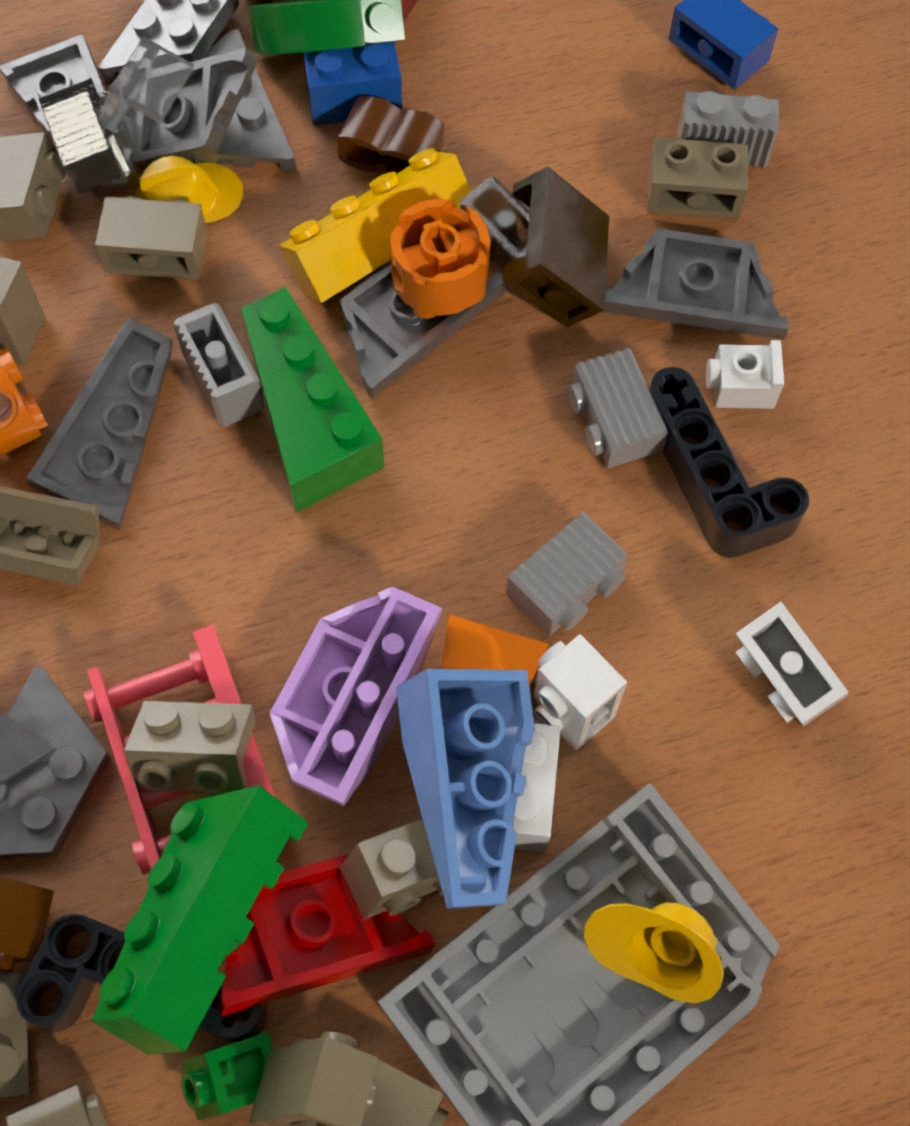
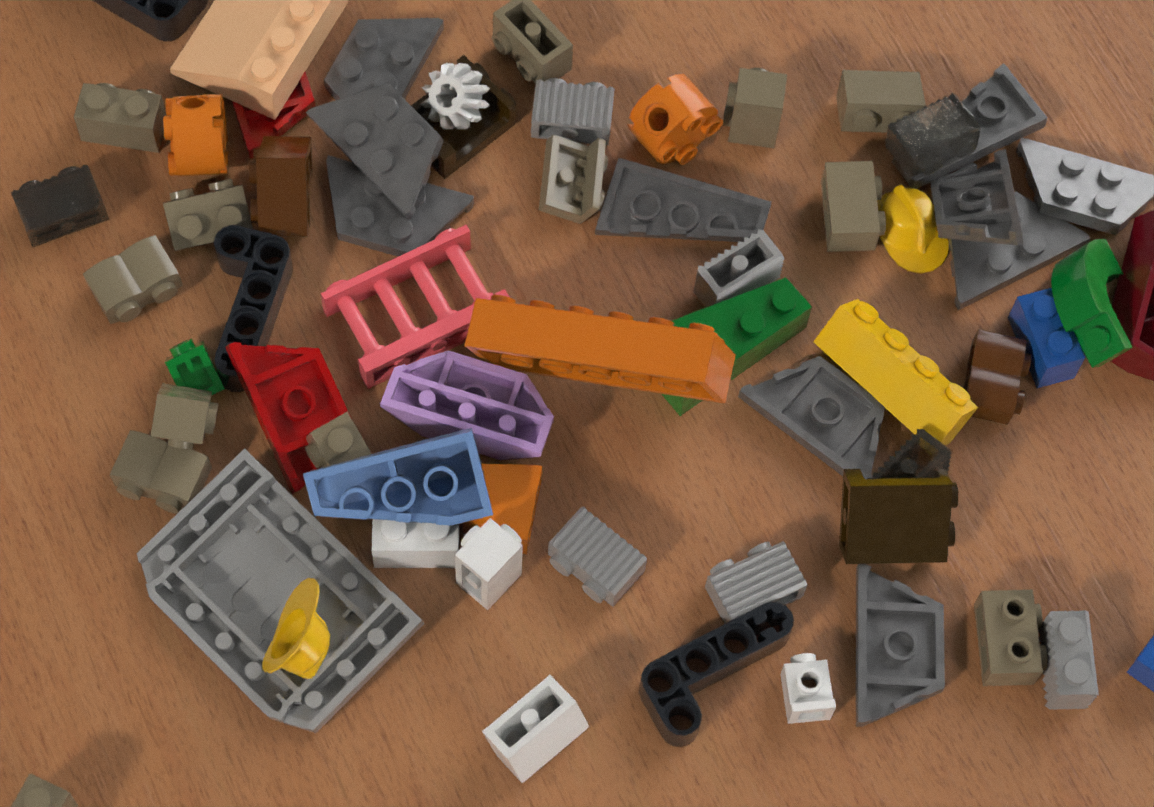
camera: 80 degrees right, 0 degrees up
(146, 83) = (974, 166): clear panel -> none
(190, 746) = (414, 298): dark tan bracket -> none
(194, 916) = (286, 313): green wedge -> none
(318, 508) = (601, 348): none -> orange brick
(440, 258) = (858, 418): orange brick -> none

